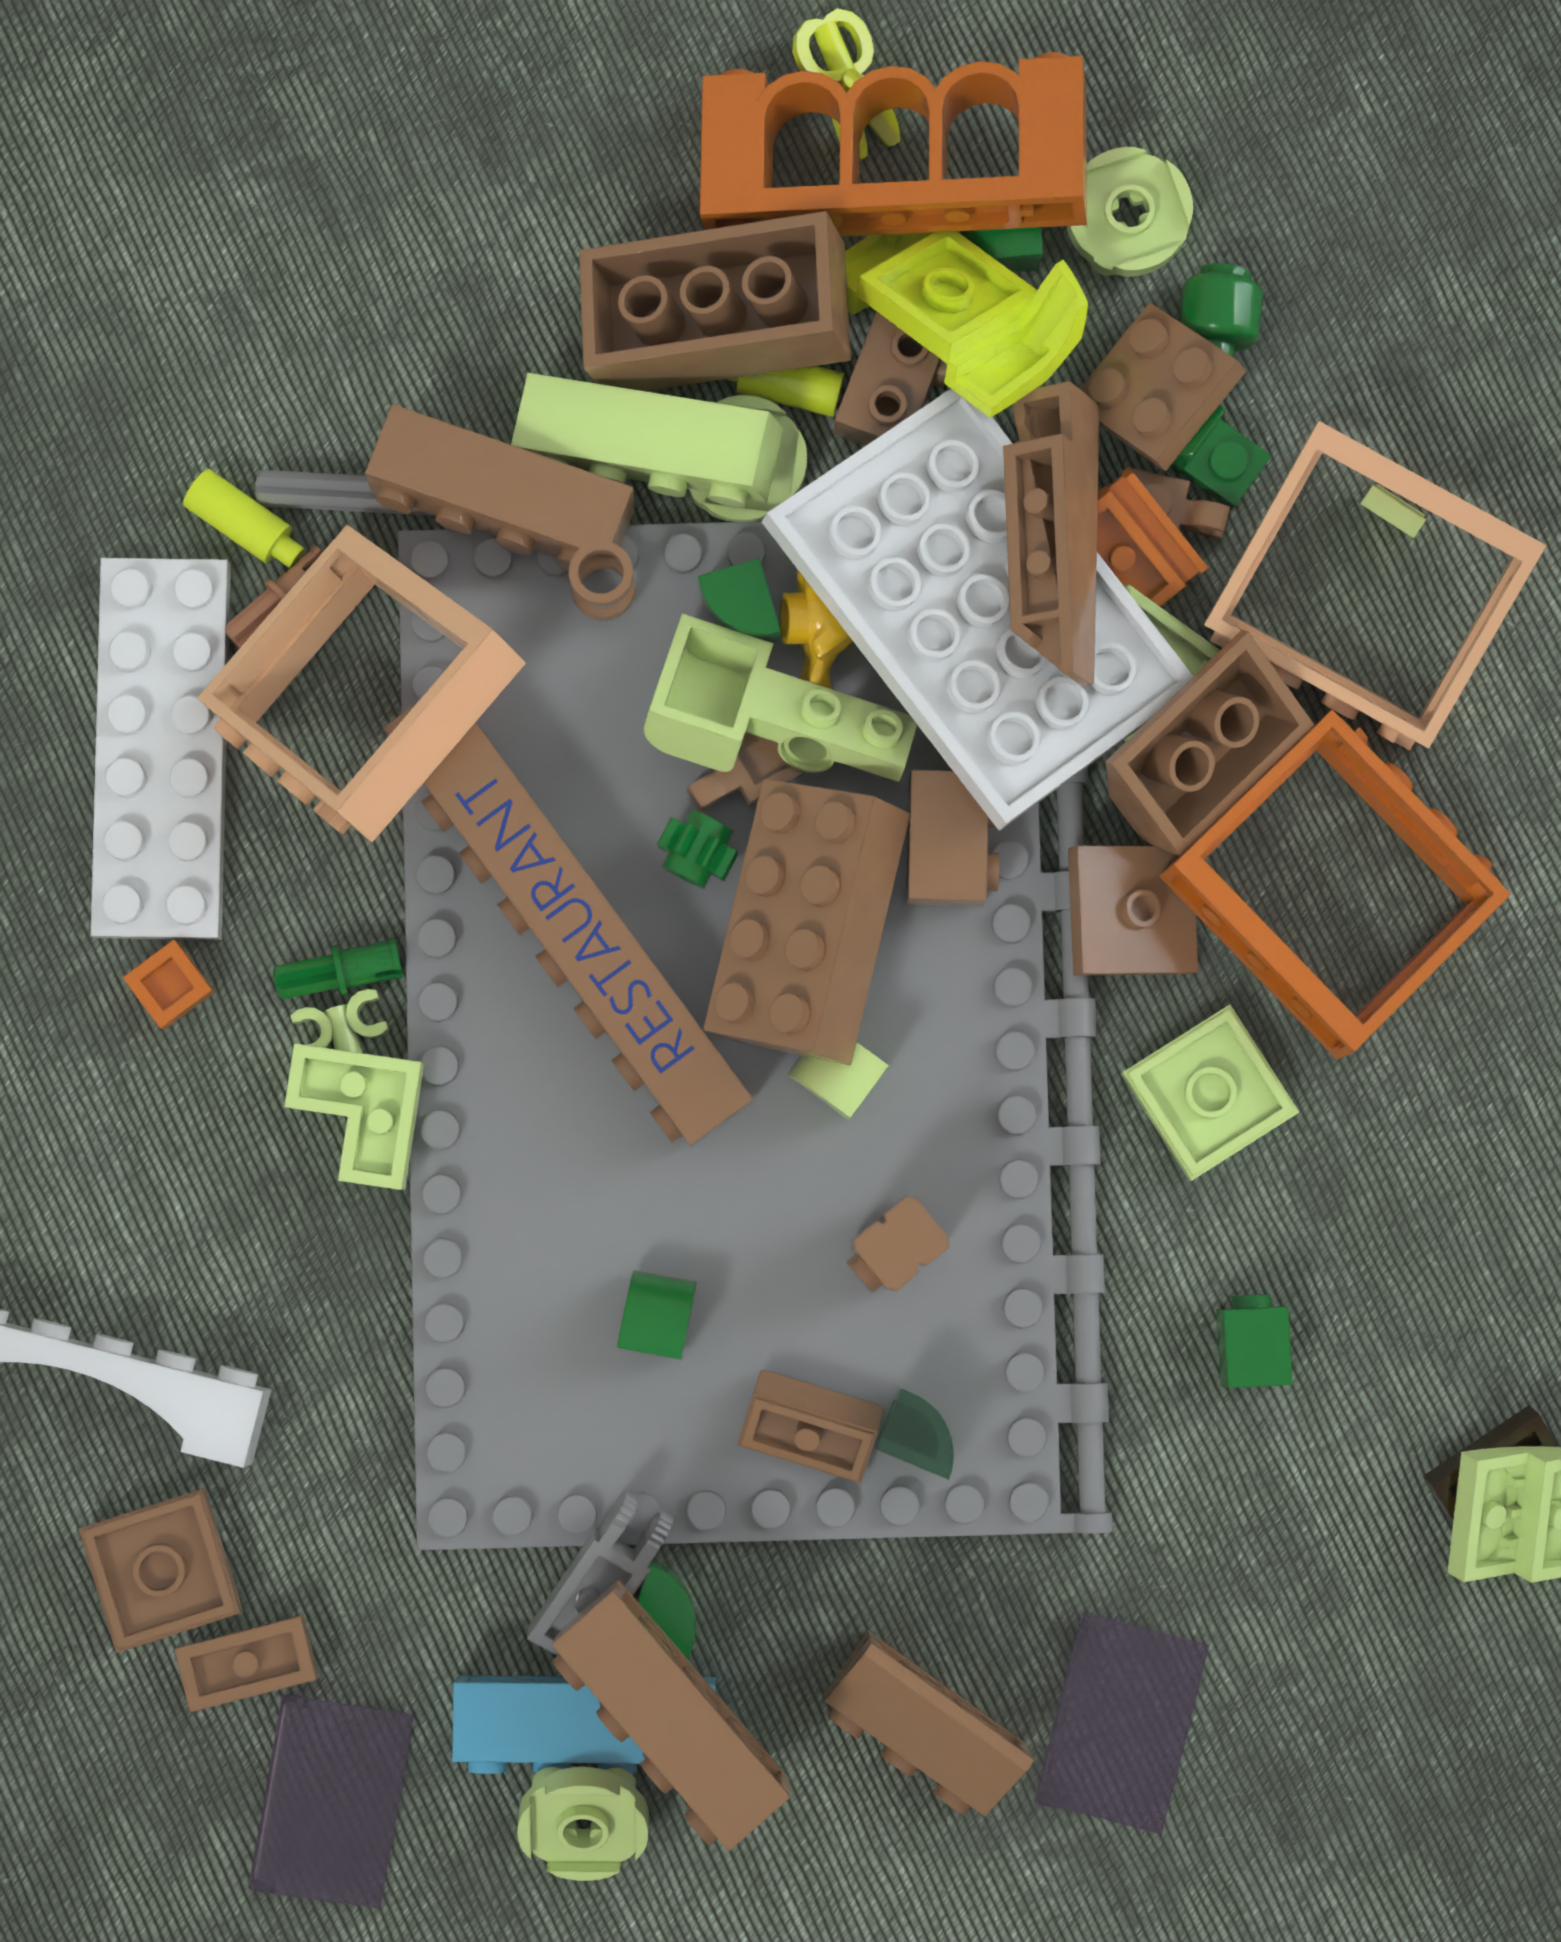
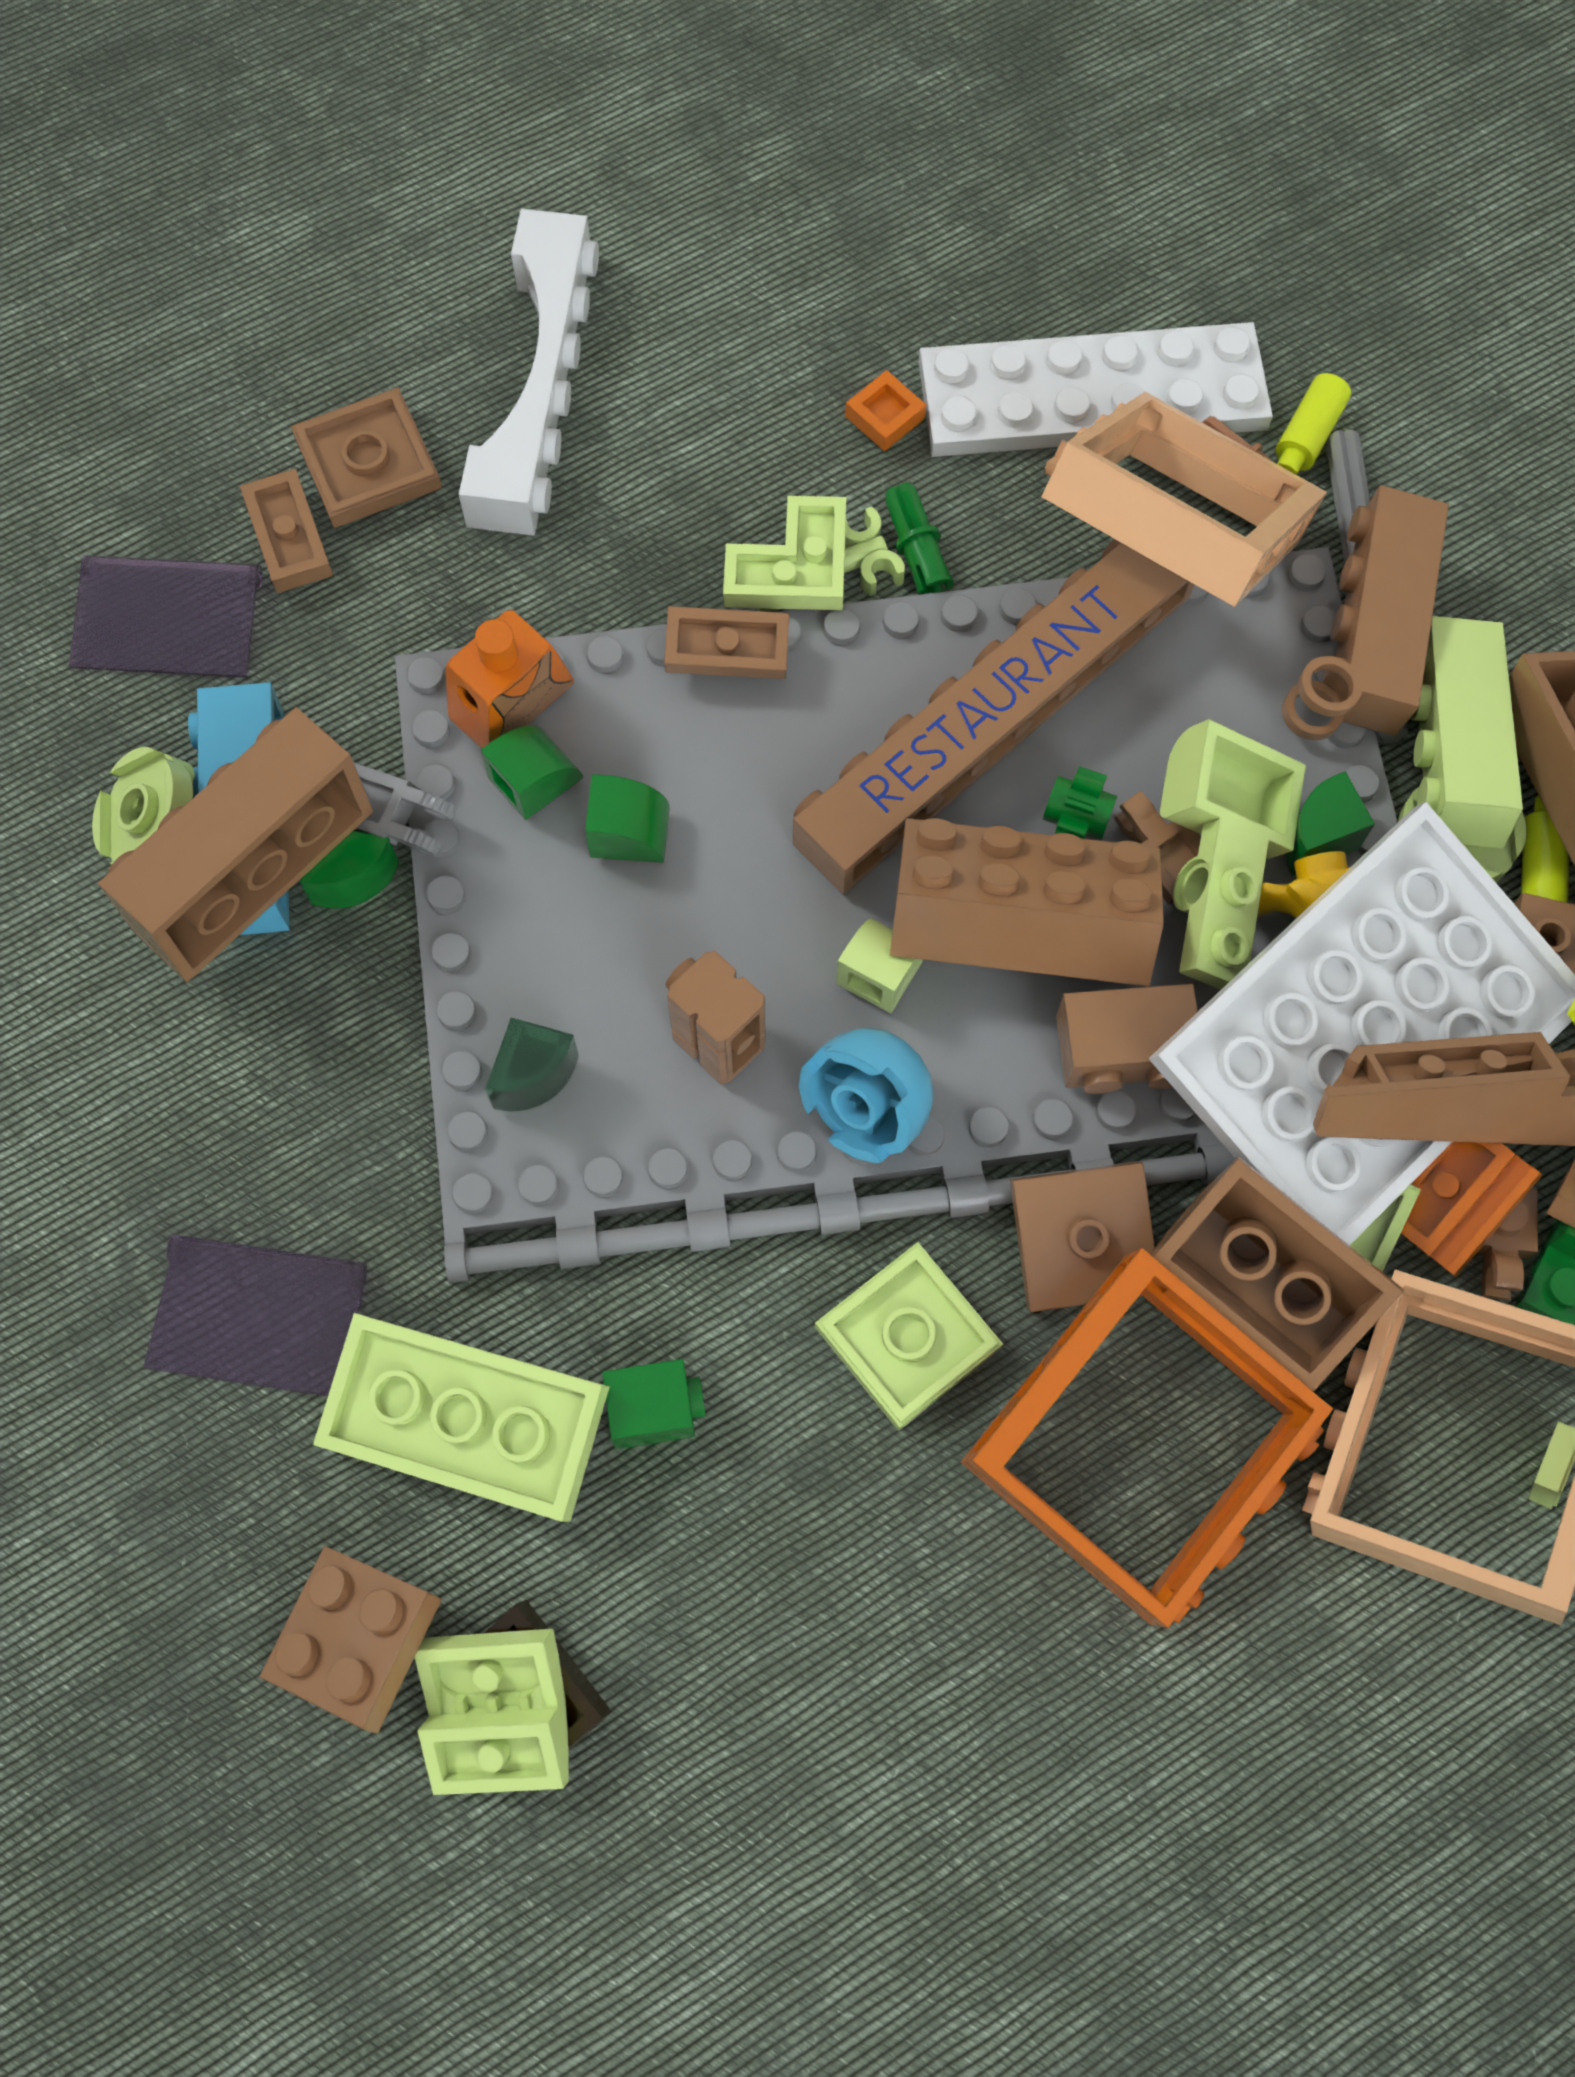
camera: 85 degrees right, 15 degrees down
(461, 1191) = (726, 642): none -> medium nougat plate
(489, 1429) = (503, 679): none -> orange torso
(583, 1409) = (529, 769): none -> green brick
(811, 1426) = (534, 969): medium nougat slope -> none
(926, 1727) = (247, 1112): medium nougat slope -> none
(983, 1099) = (868, 1092): none -> medium azure cylinder
(1252, 1526) = (462, 1417): none -> yellowish green plate
(1443, 1640) = (350, 1639): none -> medium nougat plate

